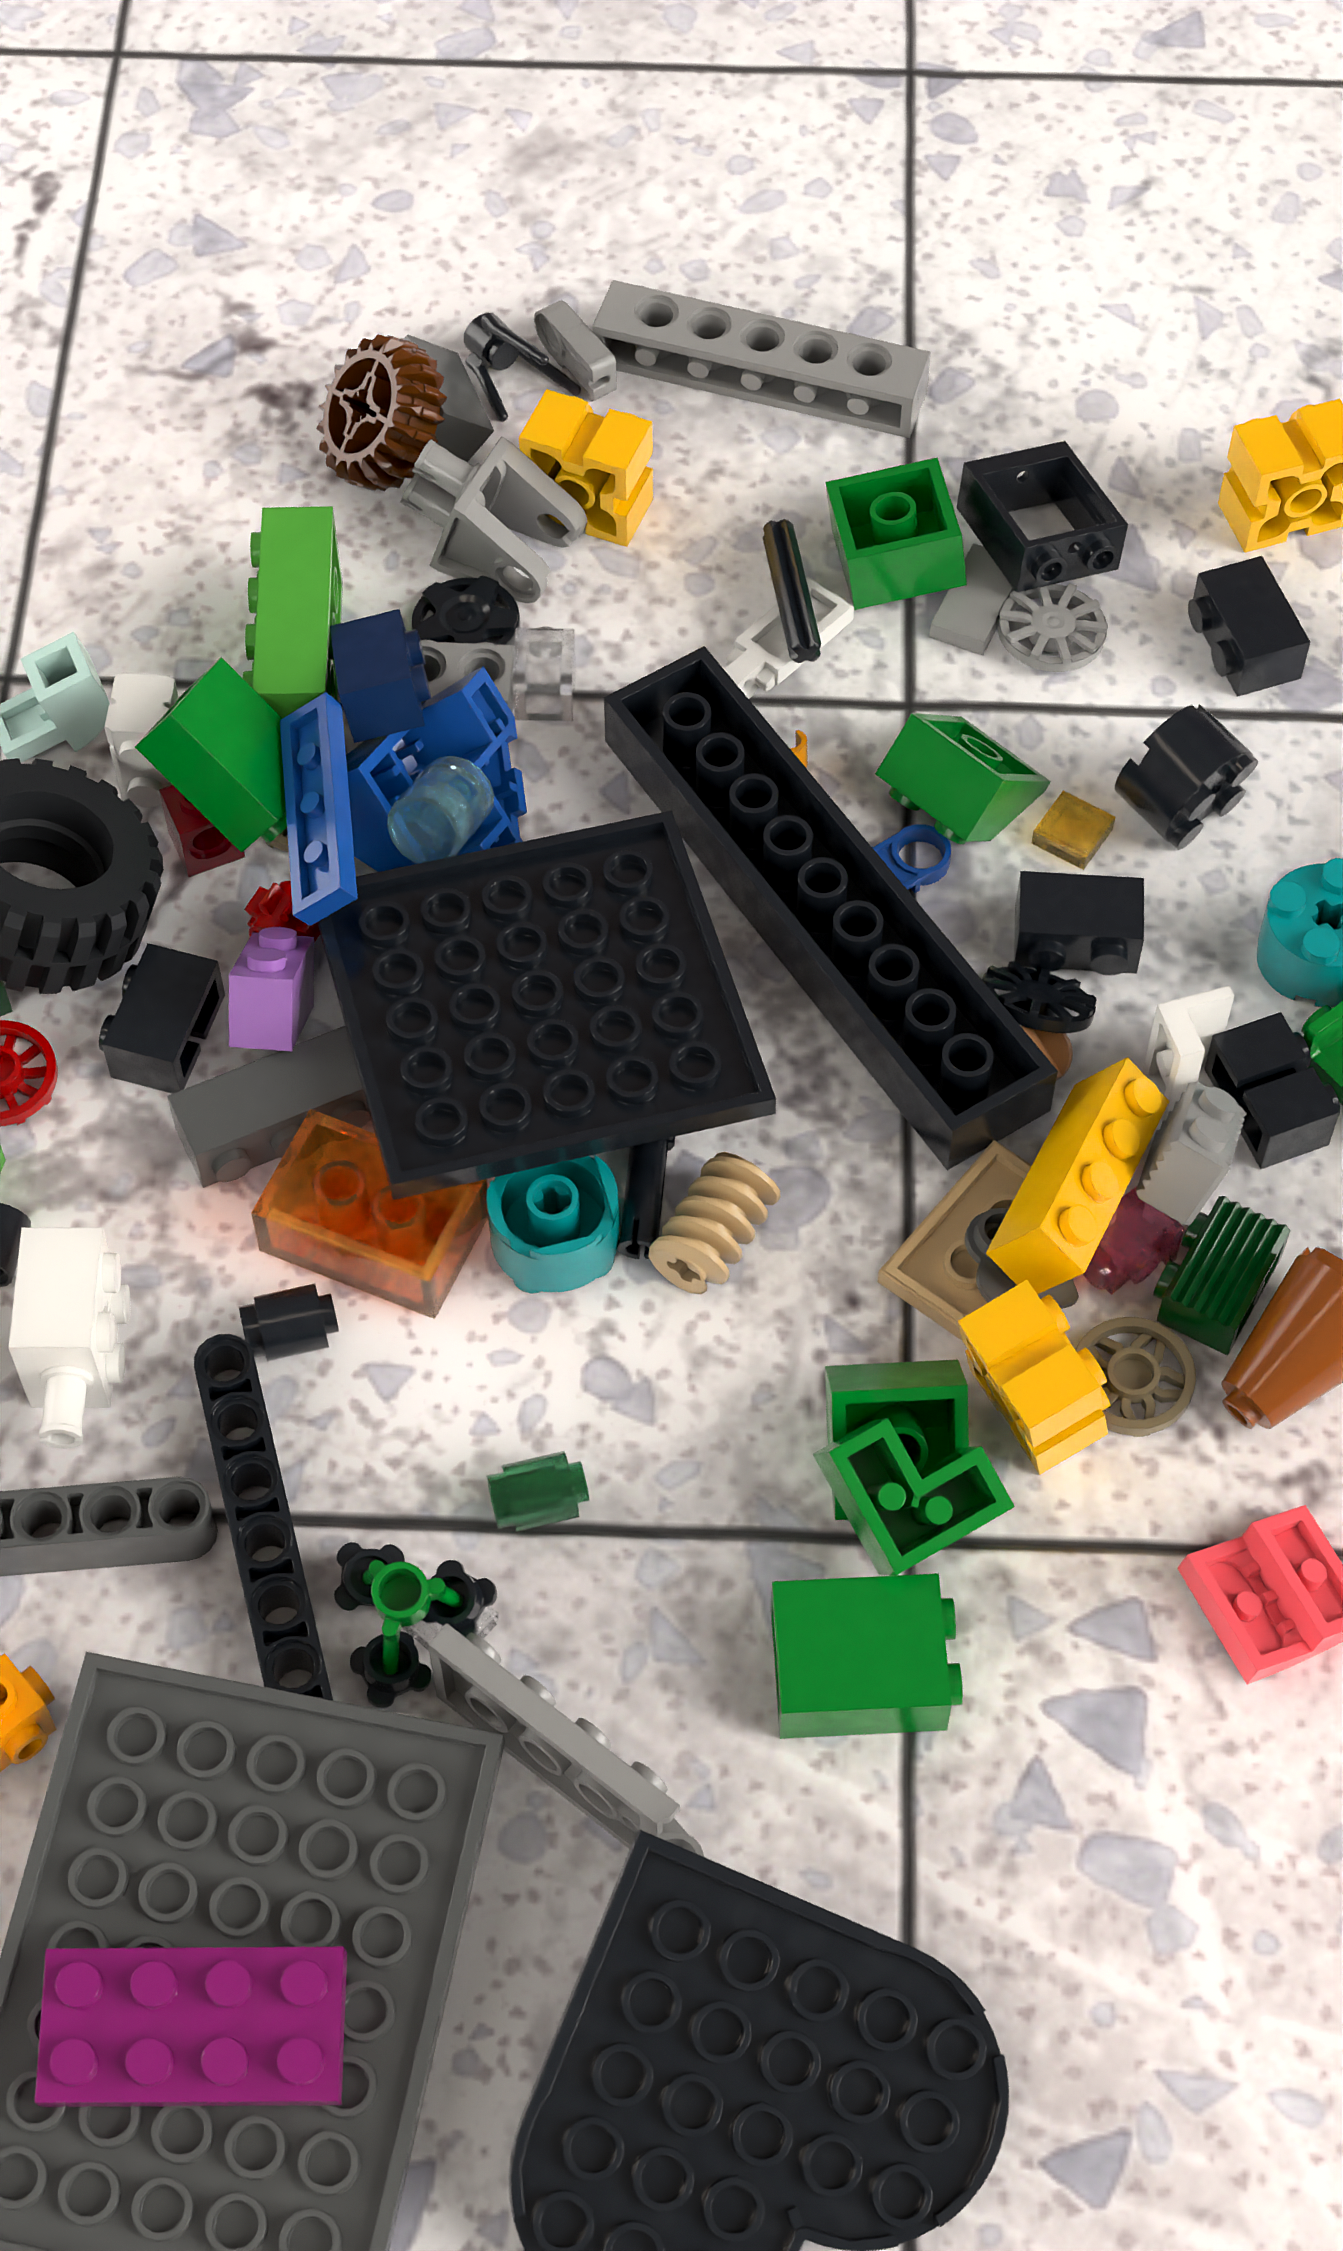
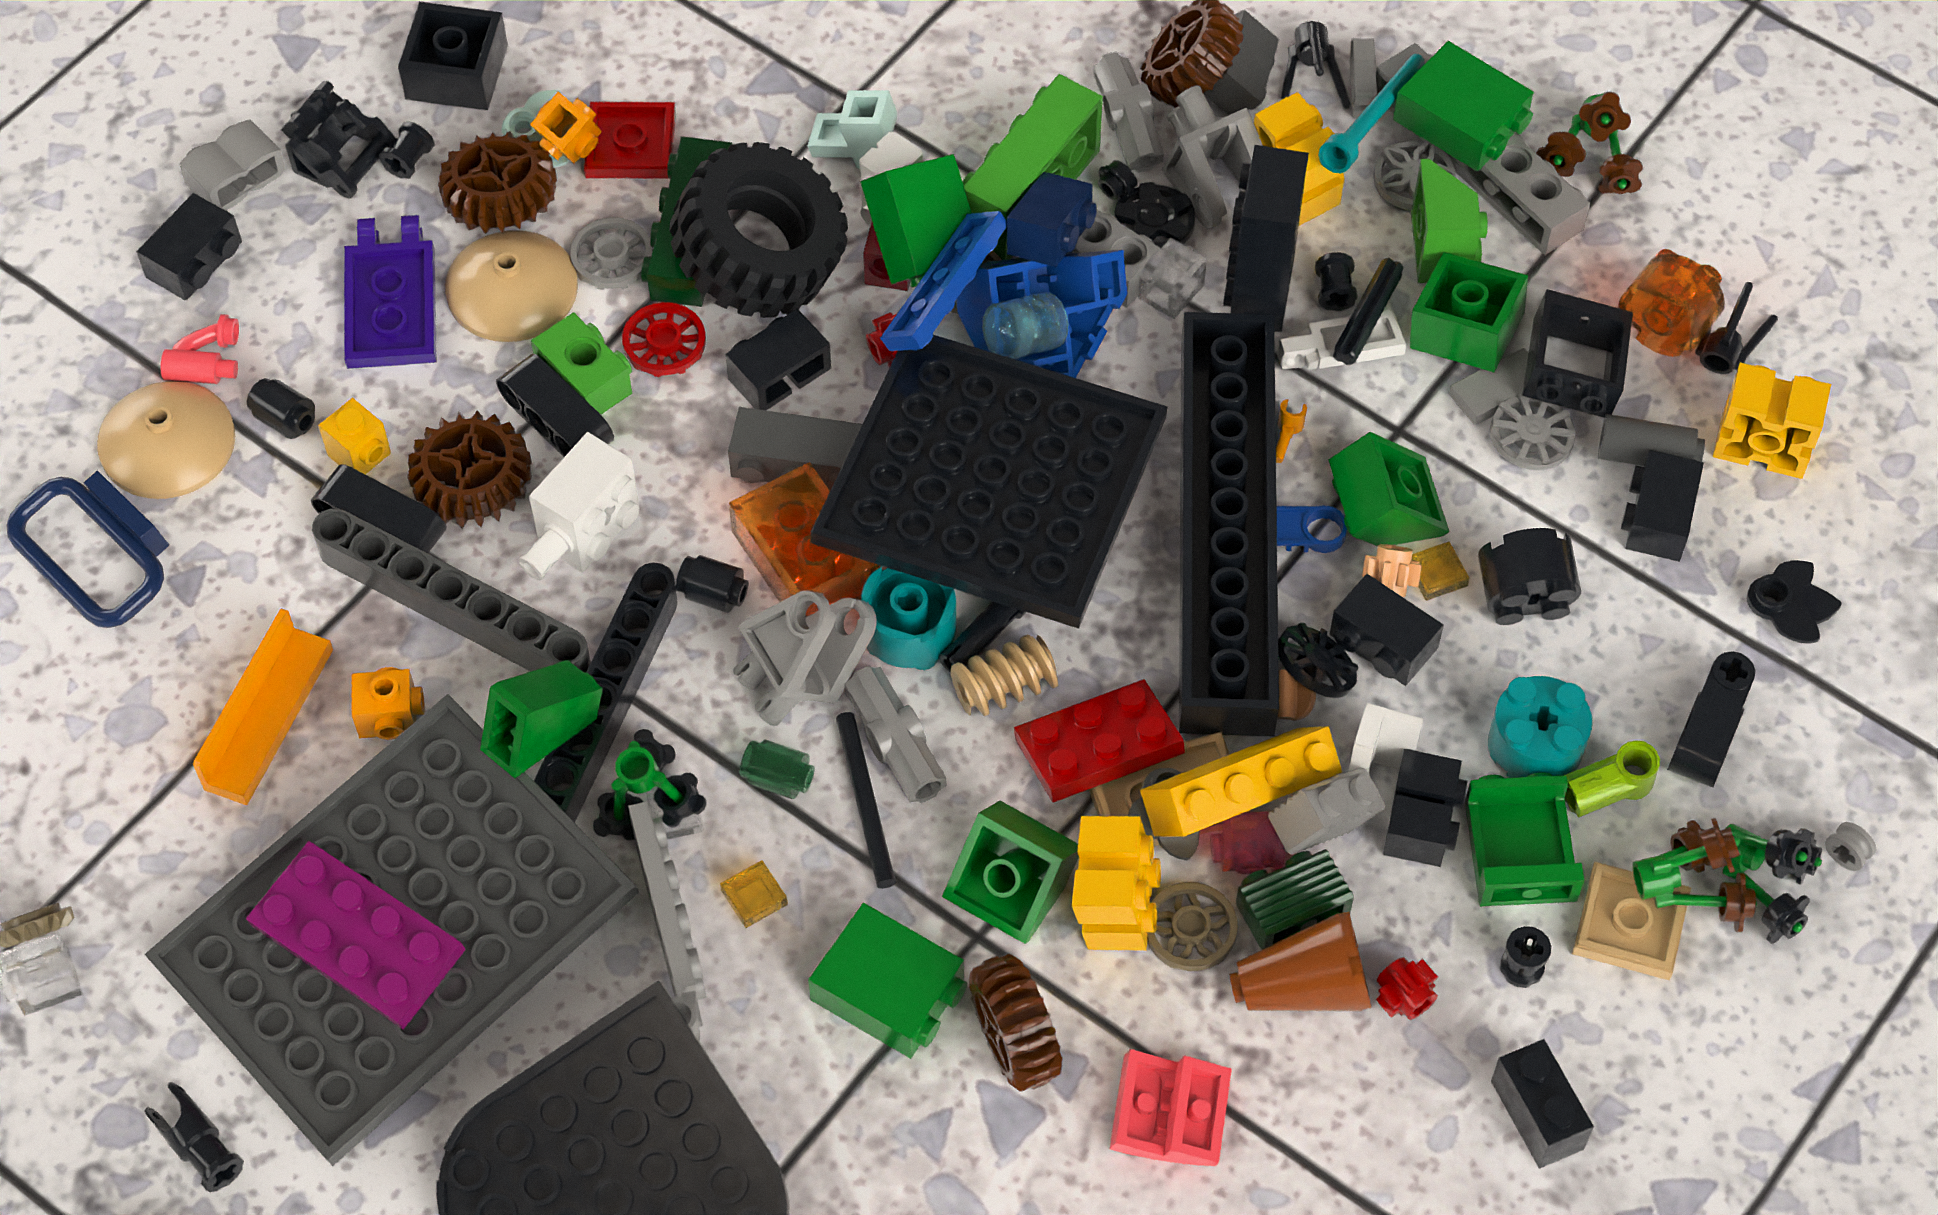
camera: 35 degrees right, 0 degrees up
(230, 1607) = (537, 714): none -> green slope
(271, 990) = (844, 378): medium lavender brick -> none
(358, 516) = (1129, 112): none -> light grey piece
(393, 594) = (1116, 180): none -> black plate
(474, 1332) = (803, 654): none -> light grey piece
(621, 1657) = (753, 894): none -> clear yellow tile
(641, 556) = (1265, 232): none -> black brick
(641, 1366) = (895, 734): none -> light grey piece
(650, 423) = (1341, 149): none -> teal piece
(662, 1464) = (865, 800): none -> black bar
(711, 425) = (1407, 171): none -> light grey wheel
(723, 580) = (1336, 281): none -> black bush
(728, 316) = (1463, 106): none -> green brick
(791, 448) = (1444, 219): none -> bright green slope
(872, 257) = (1601, 119): none -> reddish brown plant
(873, 1231) = (1099, 740): none -> red plate
(904, 1512) = (968, 911): green brick -> none
(1035, 849) = (1393, 568): none -> light nougat gear
(1053, 1606) = (1015, 1022): none -> reddish brown gear
(1099, 406) = (1673, 303): none -> clear orange brick
(1171, 572) = (1632, 438): none -> dark grey brick
(1172, 432) = (1723, 348): none -> black plant

